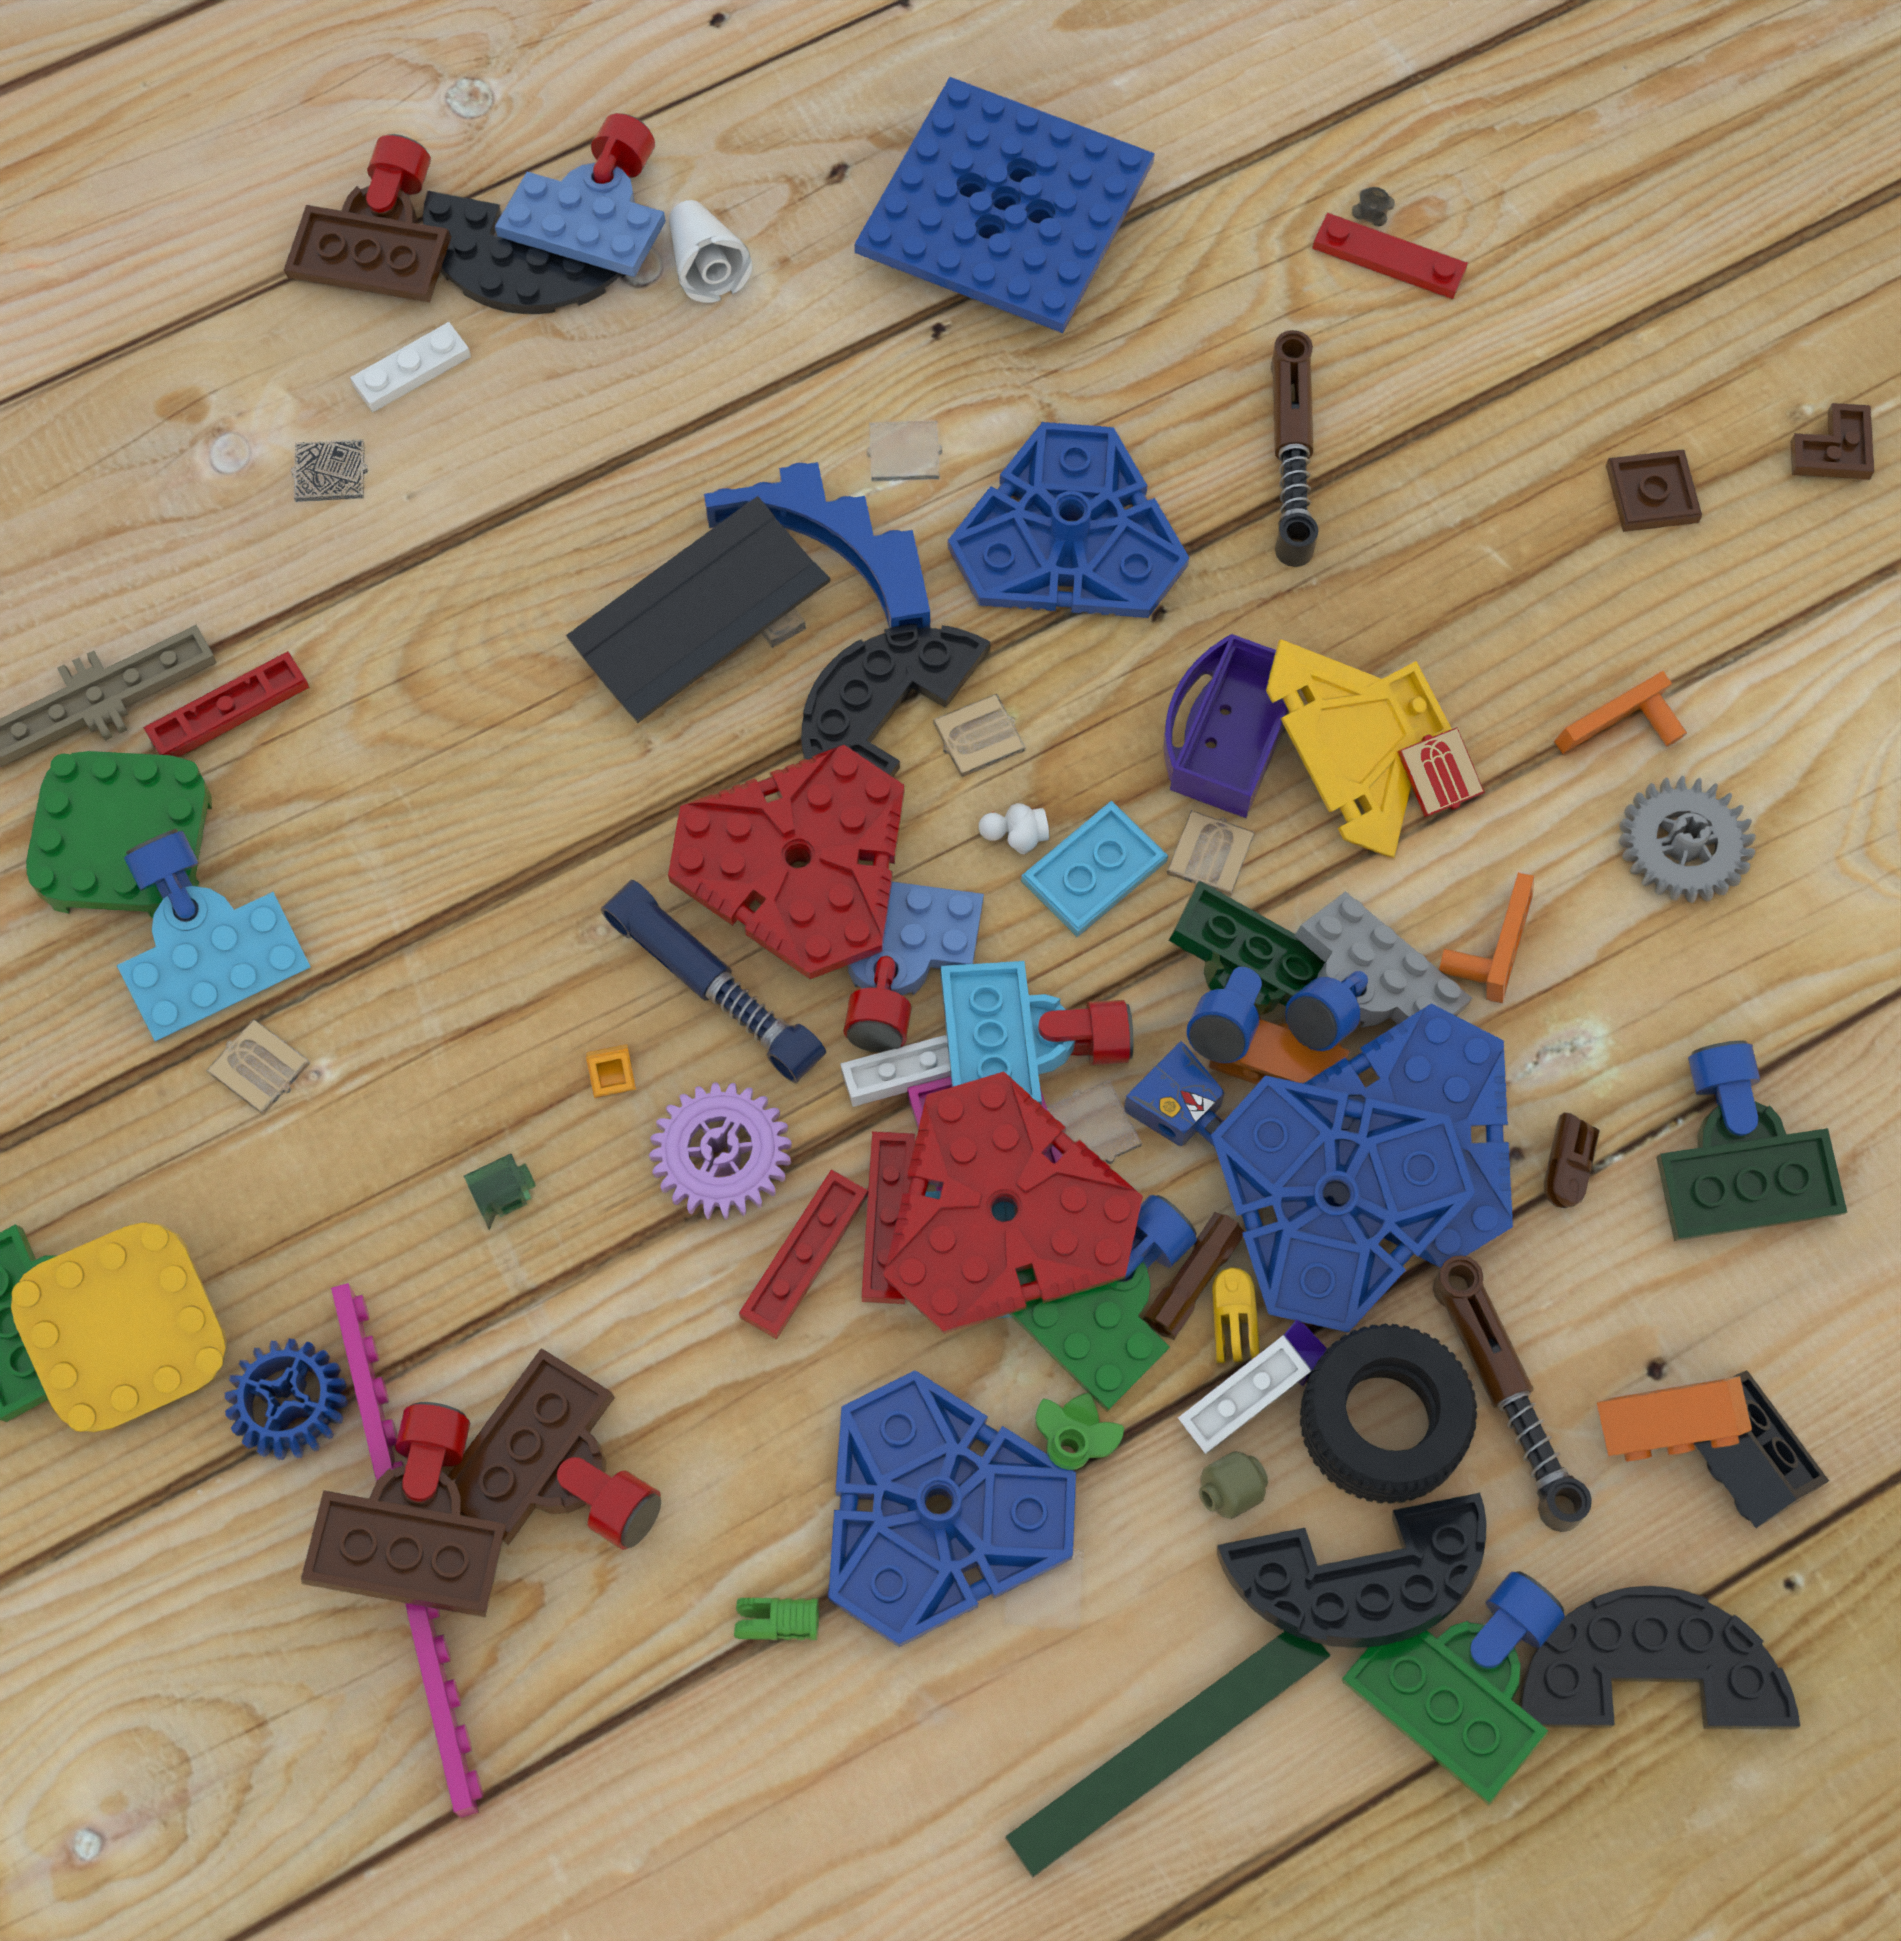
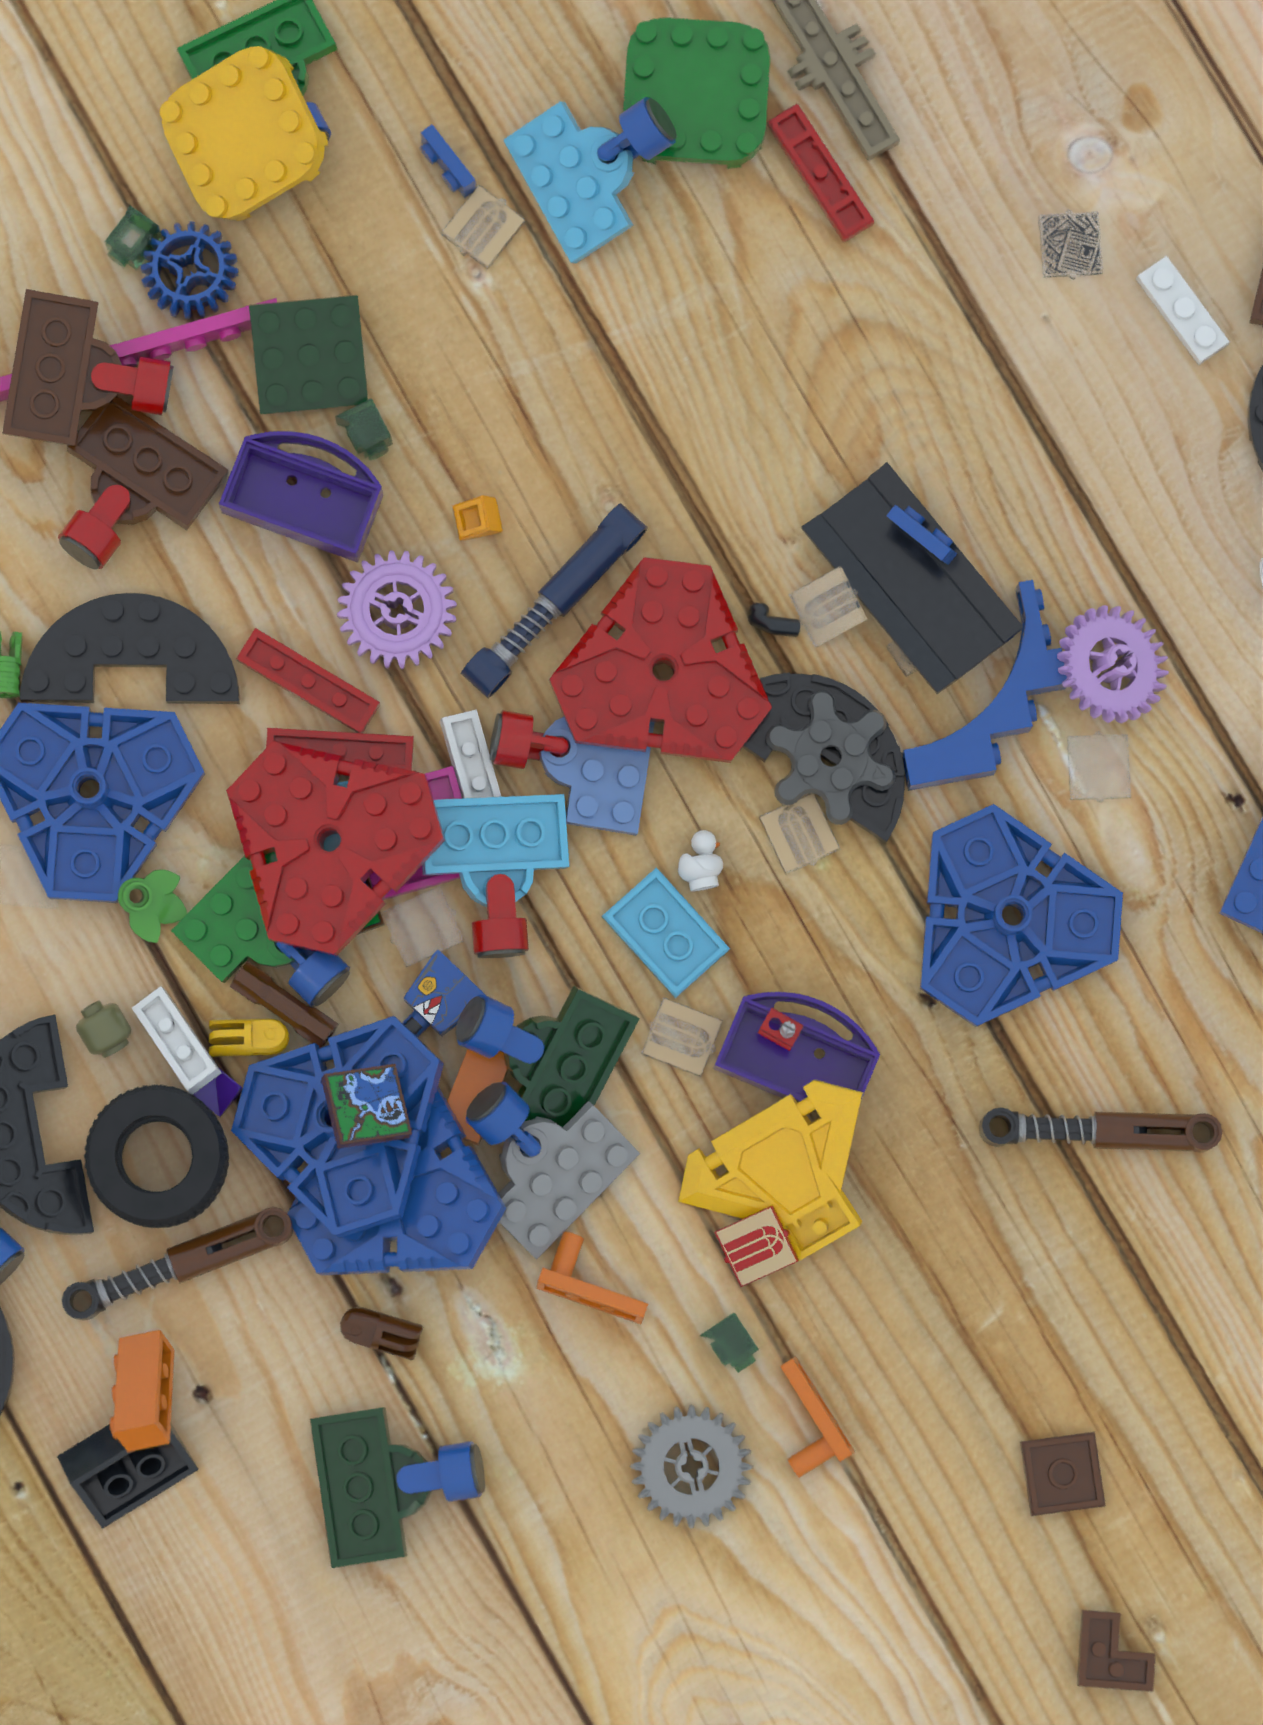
camera: 85 degrees right, 15 degrees up
(185, 1093) = (455, 173): none -> blue plate
(239, 1469) = (132, 238): none -> clear green window
(403, 1253) = (308, 354): none -> dark green plate
(613, 1219) = (260, 493): none -> dark purple piece
(661, 579) = (935, 542): none -> blue plate
(727, 697) = (828, 607): none -> clear piece
(740, 1465) = (130, 633): none -> black plate
(746, 753) = (773, 625): none -> black arm
(797, 421) = (1137, 664): none -> lavender gear
(891, 717) = (836, 782): none -> dark grey plate
(1214, 718) = (788, 1032): none -> red piece
(1327, 1149) = (366, 1106): none -> tile
(1548, 797) = (732, 1343): none -> clear green window

